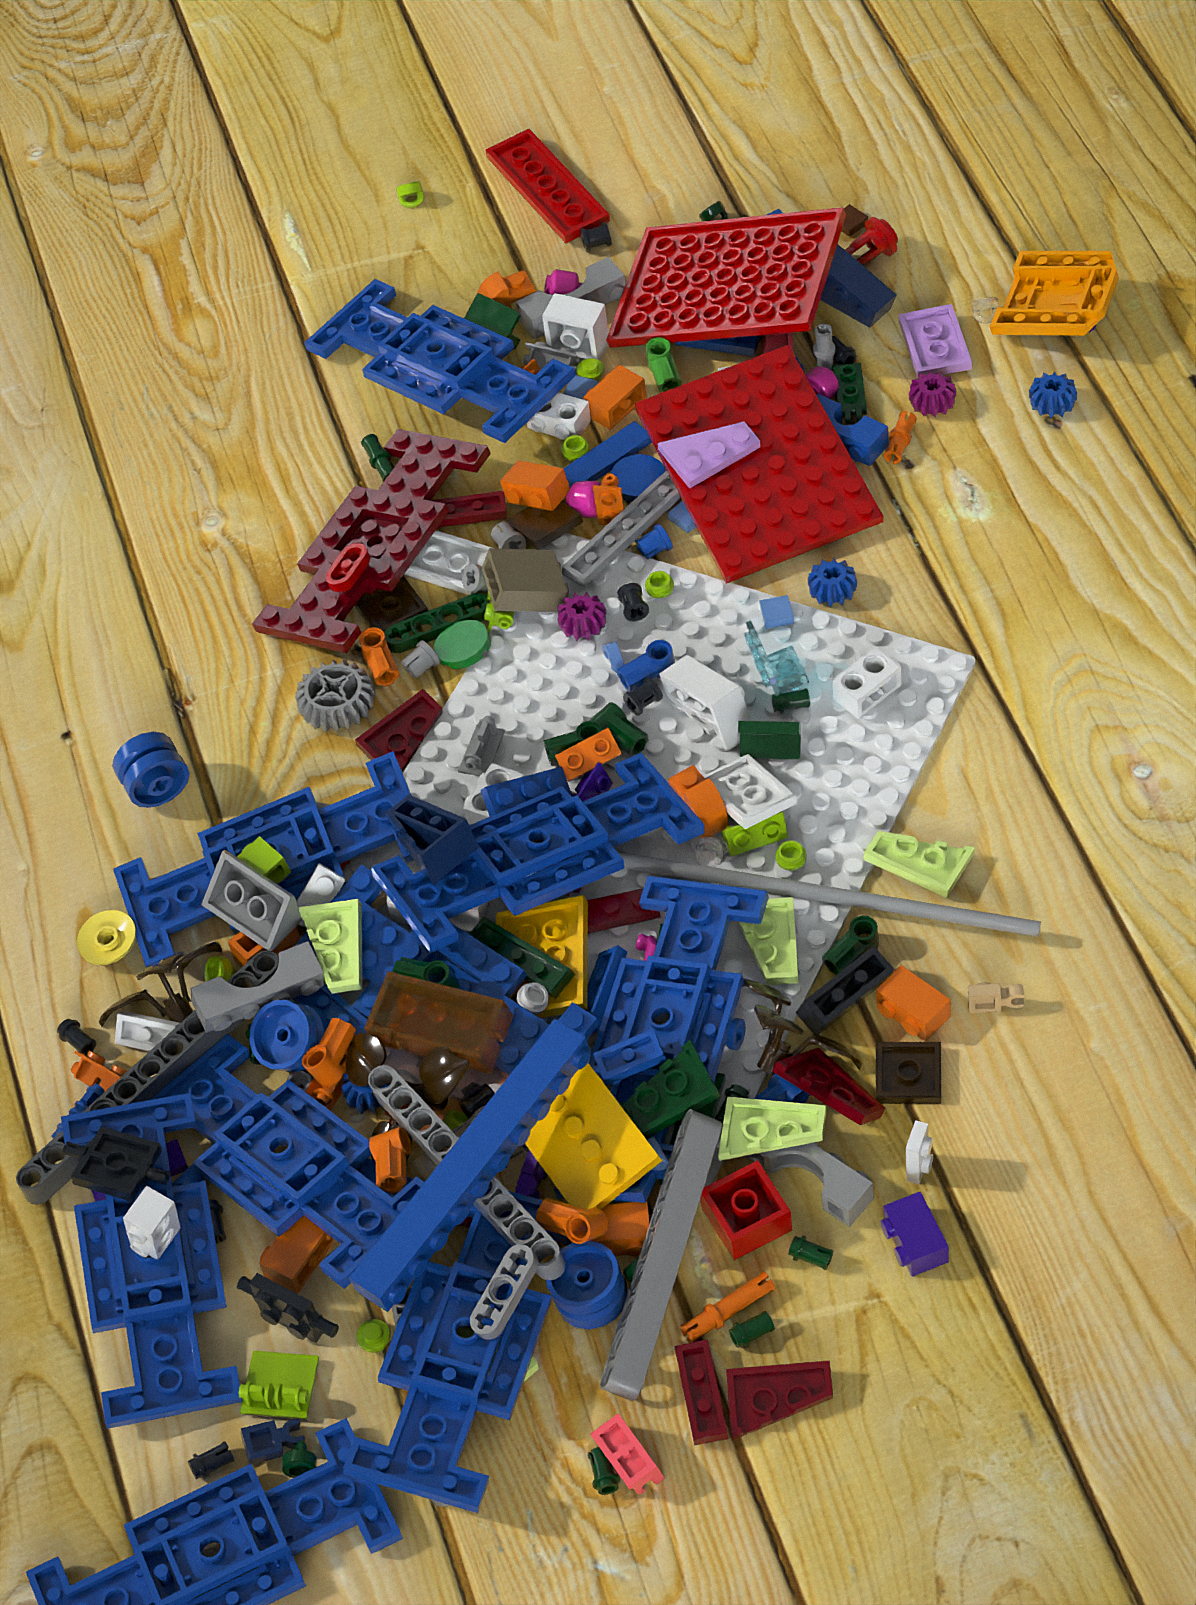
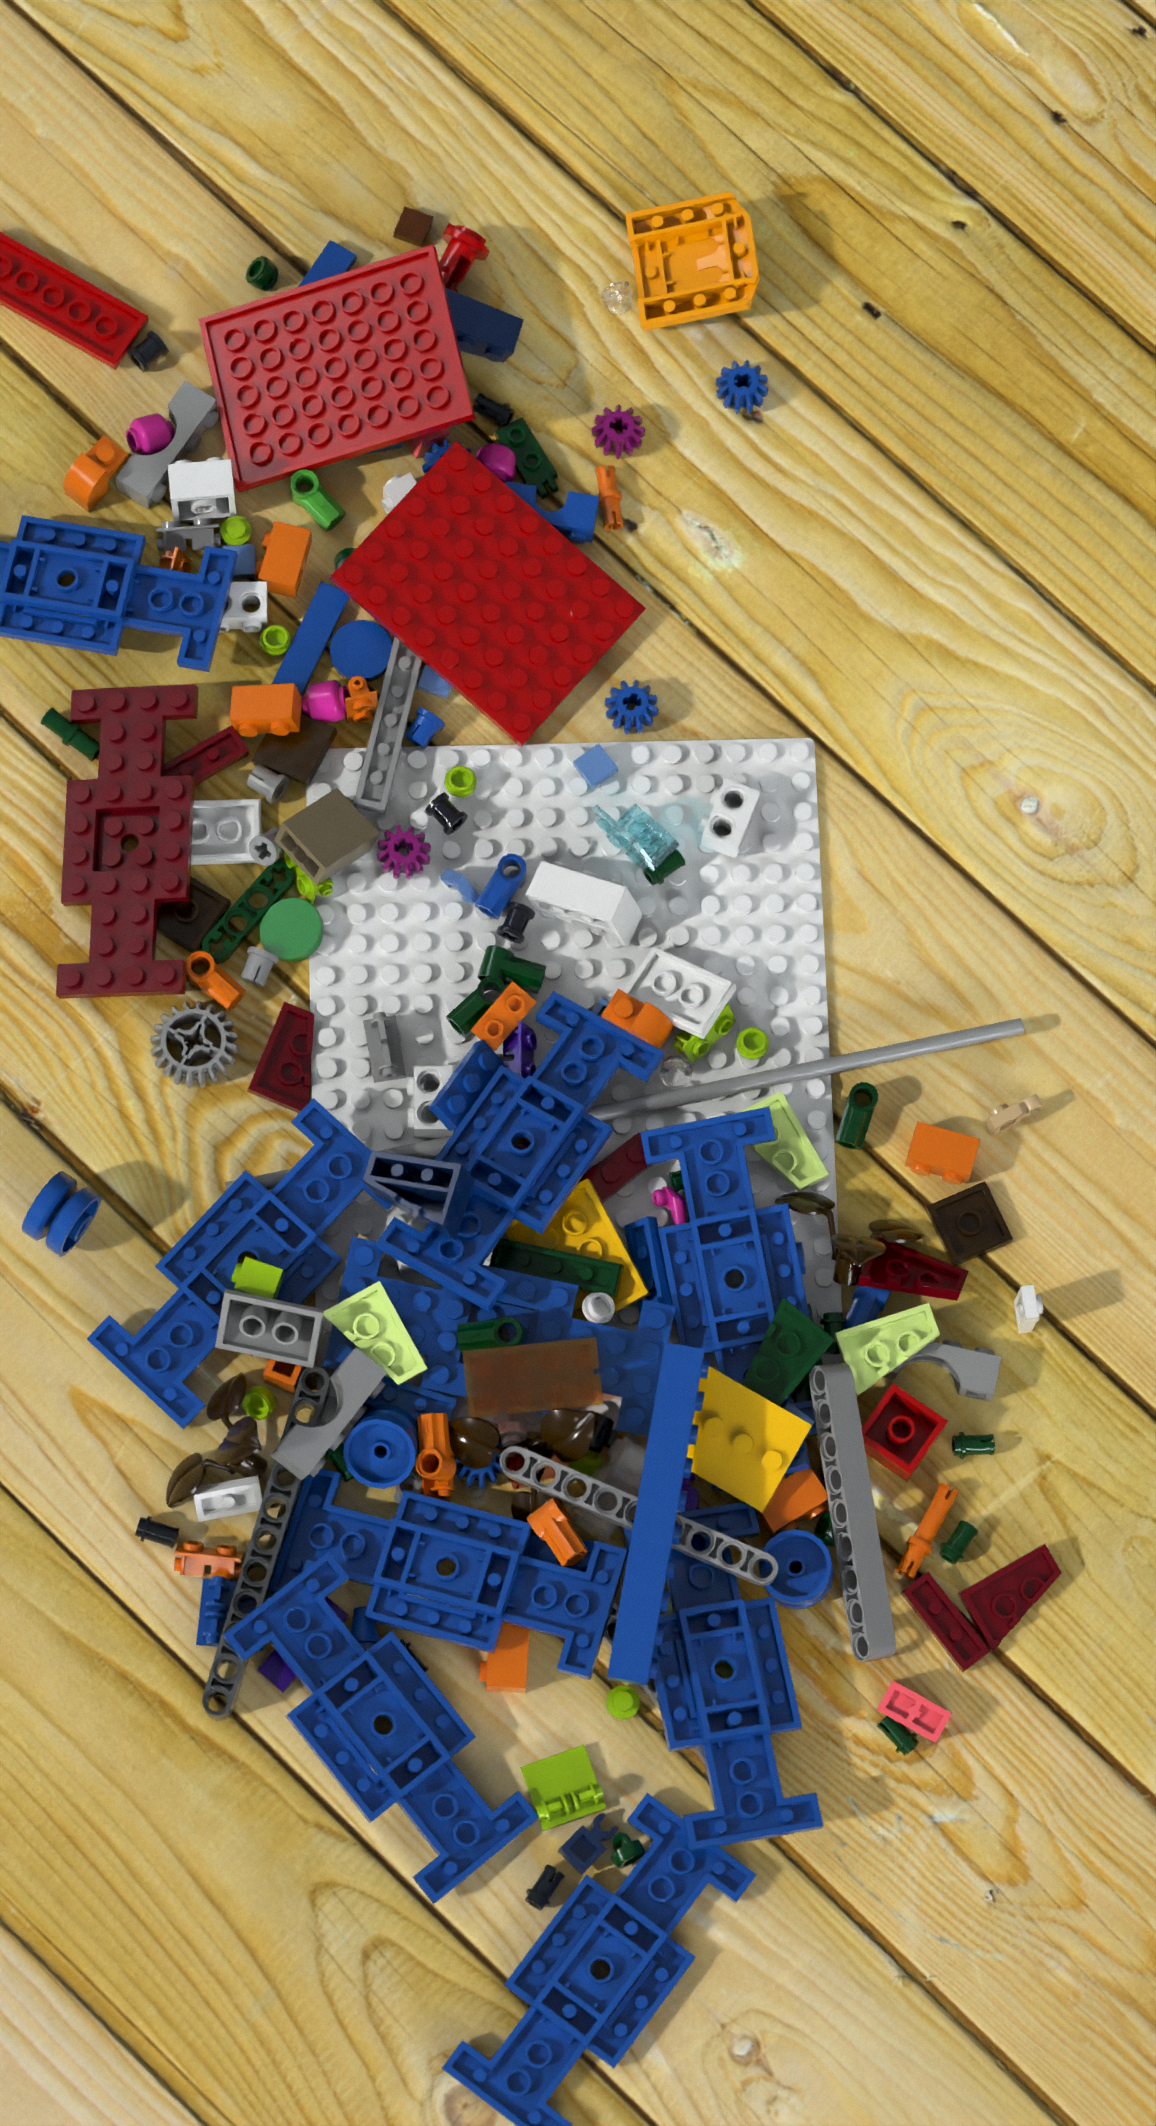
camera: 40 degrees left, 20 degrees up
(102, 928) = (109, 1406): light yellow dish -> none
(116, 1163) = (311, 1658): black plate -> none
(151, 1223) = (388, 1706): white brick -> none
(287, 1308) = (550, 1719): black plate -> none
(320, 888) = (323, 1281): white plate -> none
(347, 567) = (137, 899): red plate -> none
(494, 317) = (102, 510): dark green panel -> none
(500, 1277) = (752, 1647): light grey beam -> none
(571, 1220) = (761, 1521): orange piece -> none
(629, 1057) = (730, 1334): blue plate -> none
(708, 452) = (440, 608): lavender wing -> none
(770, 739) = (669, 921): dark green panel -> none
(824, 347) = (484, 421): light grey pin -> none
(844, 991) = (877, 1169): black brick -> none
(915, 1234) = (1057, 1387): dark purple brick -> none
(922, 863) = (874, 996): yellowish green wing -> none
(935, 341) = (586, 360): lavender plate -> none

